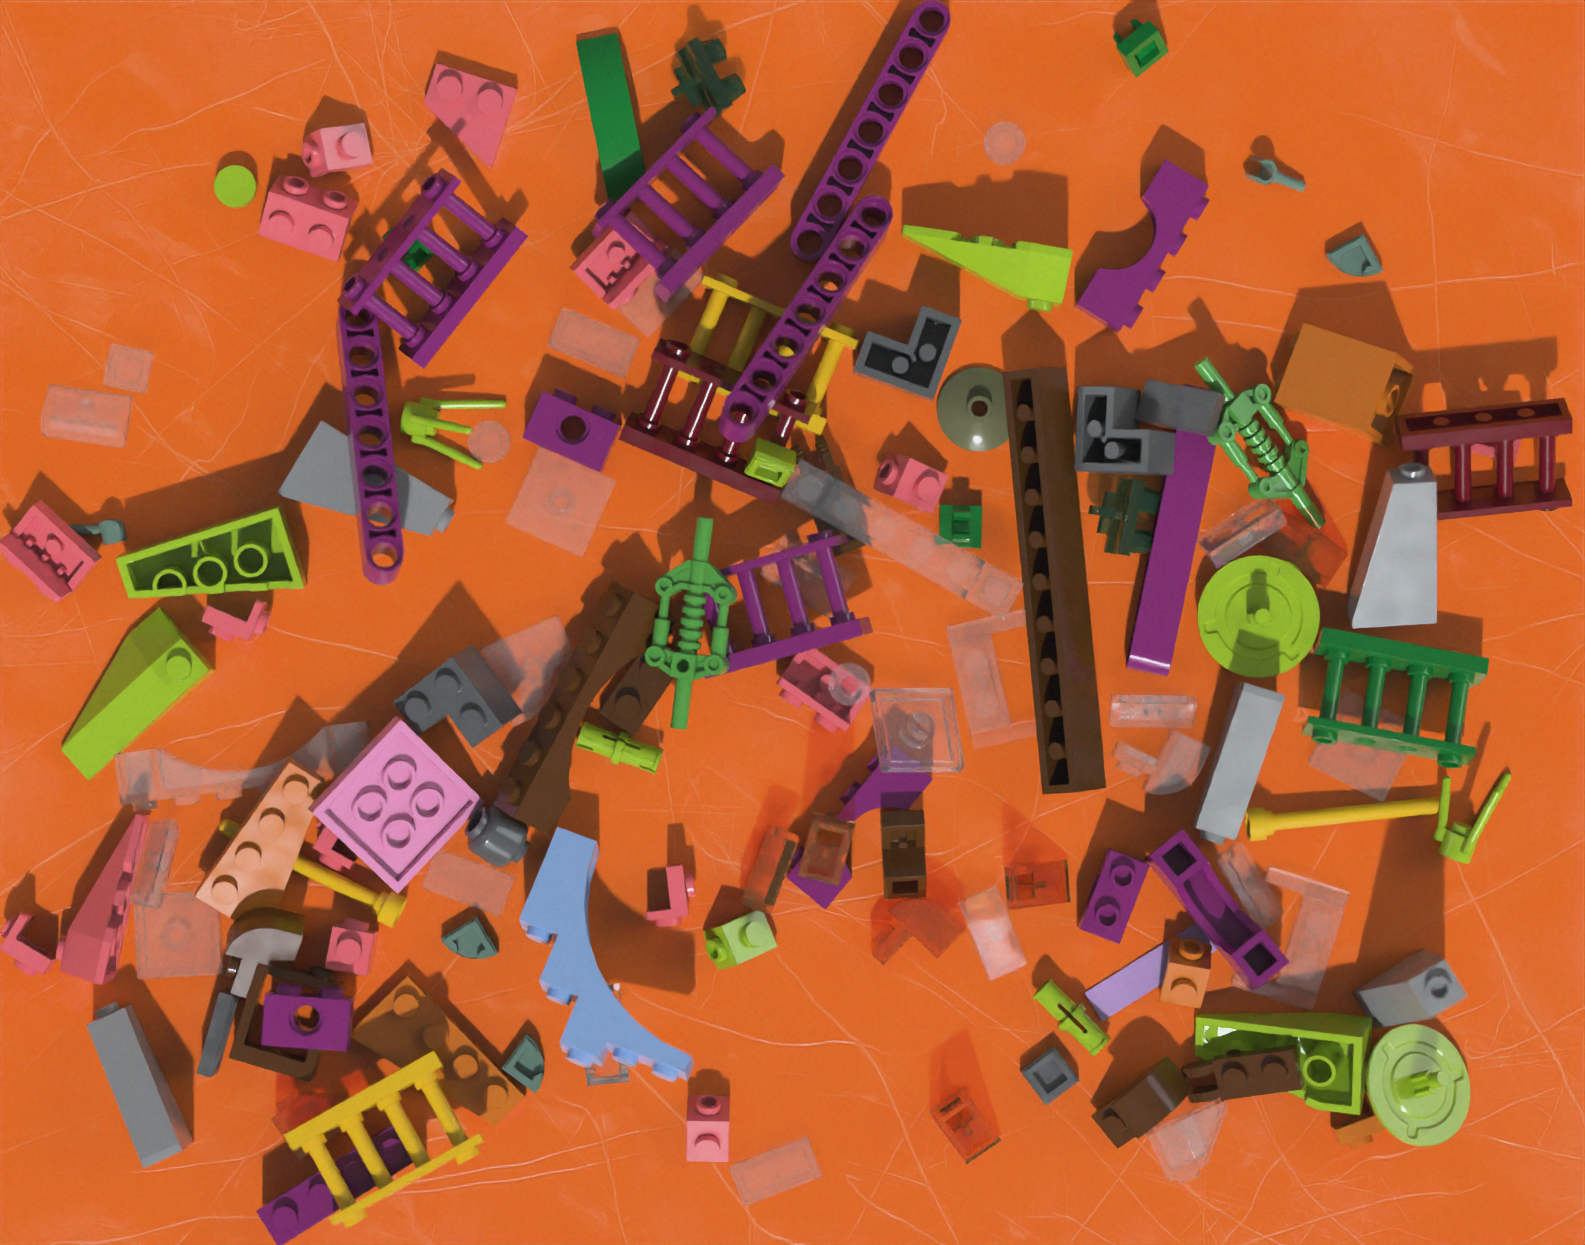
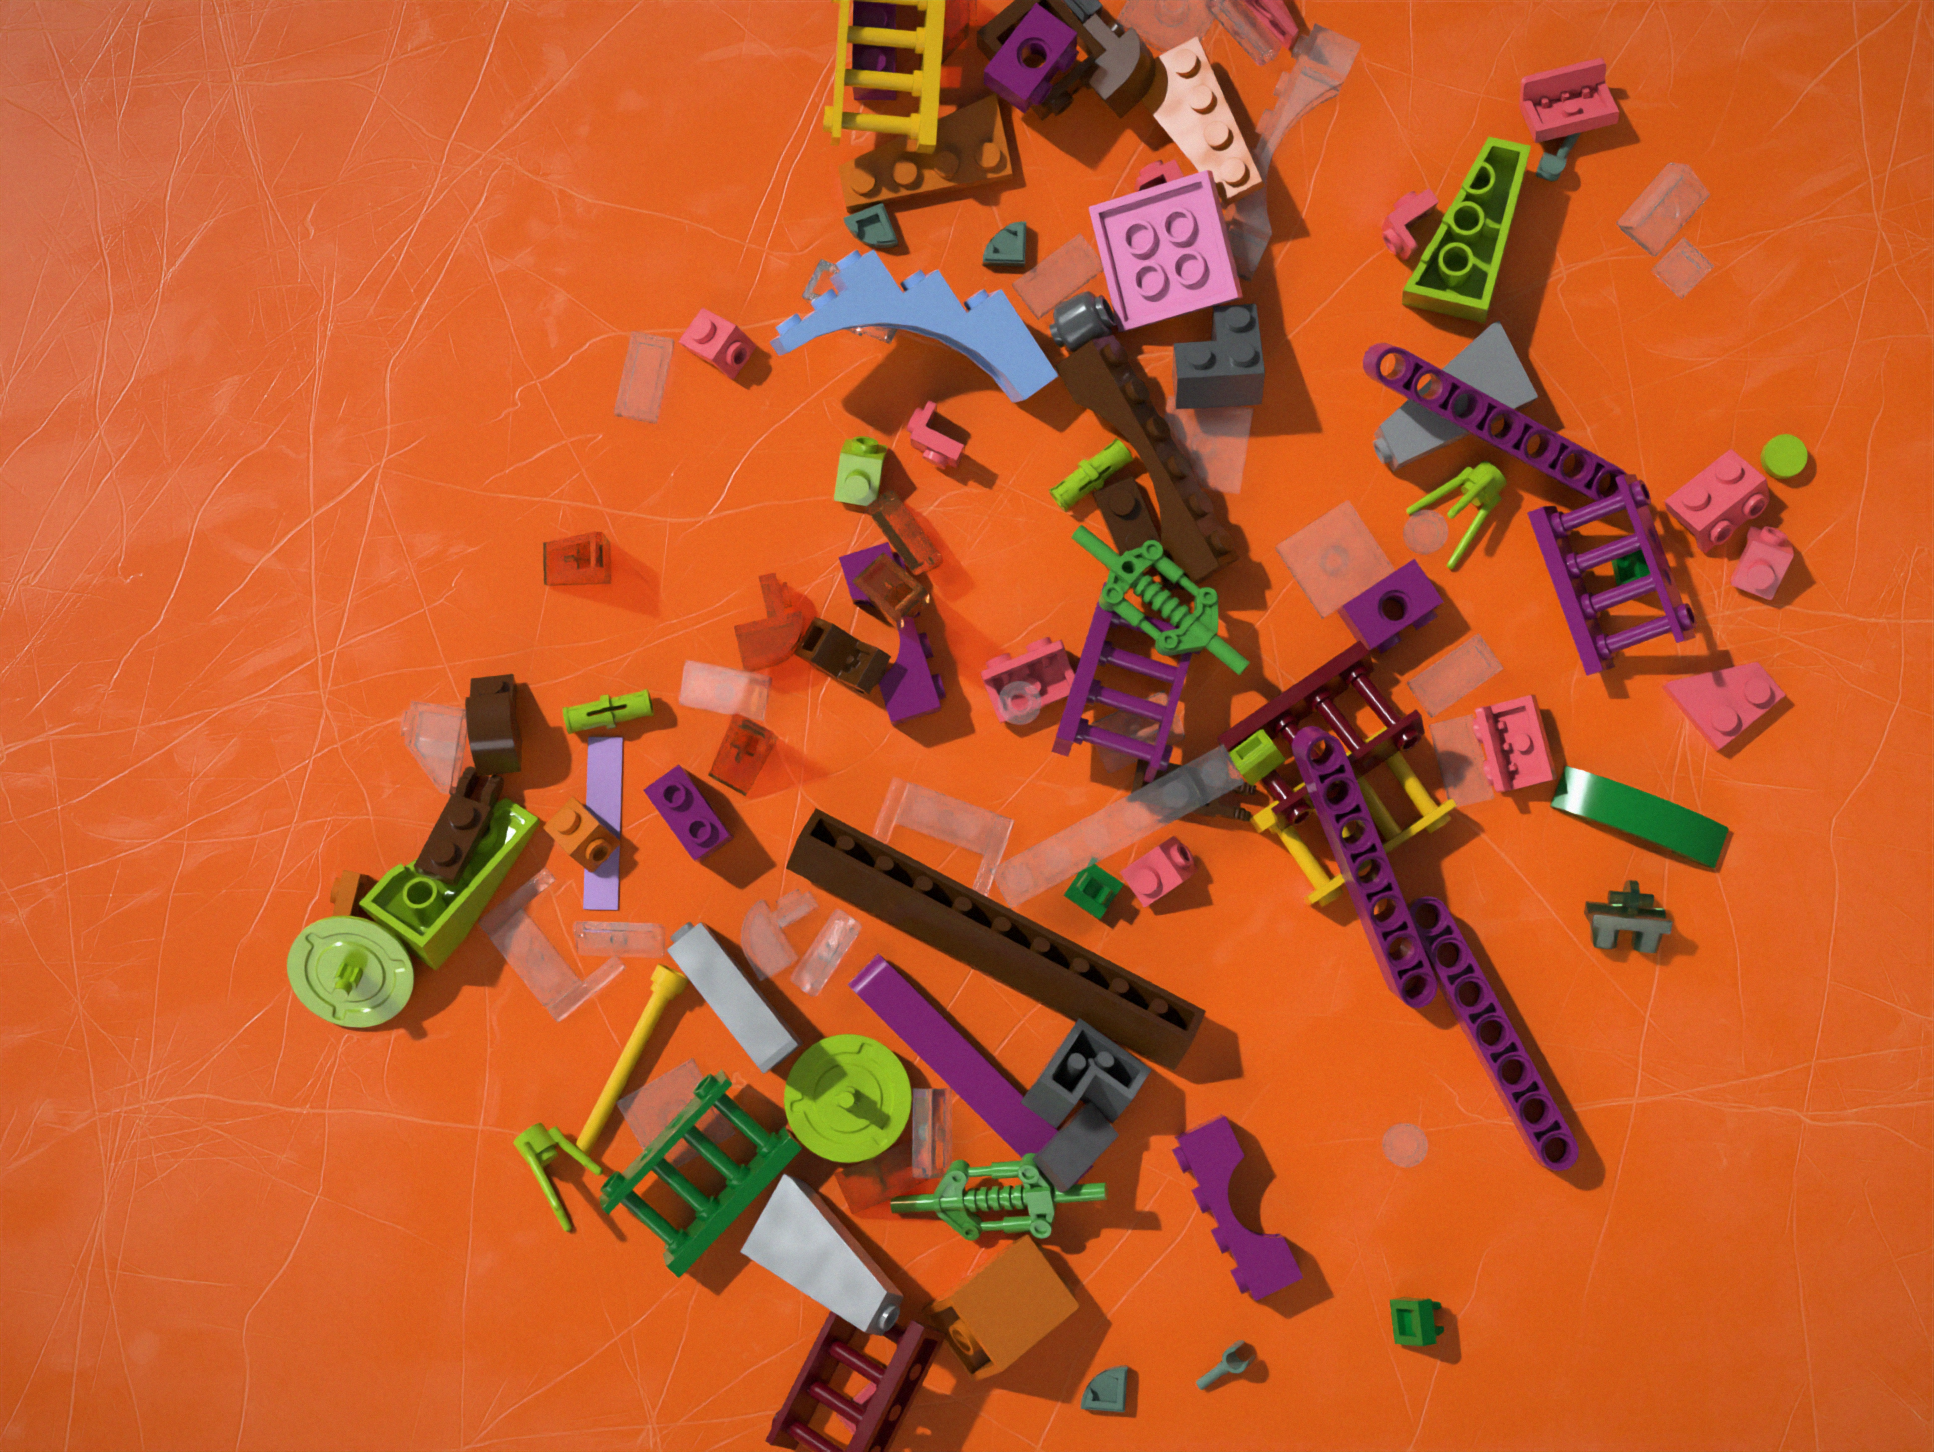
camera: 125 degrees right, 5 degrees down
(140, 686) = (1402, 109): lime wedge -> none
(352, 947) = (1066, 141): coral brick -> none
(384, 905) = (1082, 193): yellow piece -> none
(701, 244) = (1487, 819): magenta fence -> none
(914, 366) = (1260, 939): dark grey brick -> none
(916, 730) = (941, 735): clear plate -> none
(955, 411) = (1190, 947): olive dish -> none
(1022, 270) = (1284, 1087): lime wedge -> none
(1049, 1075) = (571, 661): flat silver tile -> none
(1120, 515) = (1014, 1033): clear green hips -> none
(1216, 913) = (616, 894): magenta arch -> none
(1410, 991) = (434, 1016): light grey slope -> none

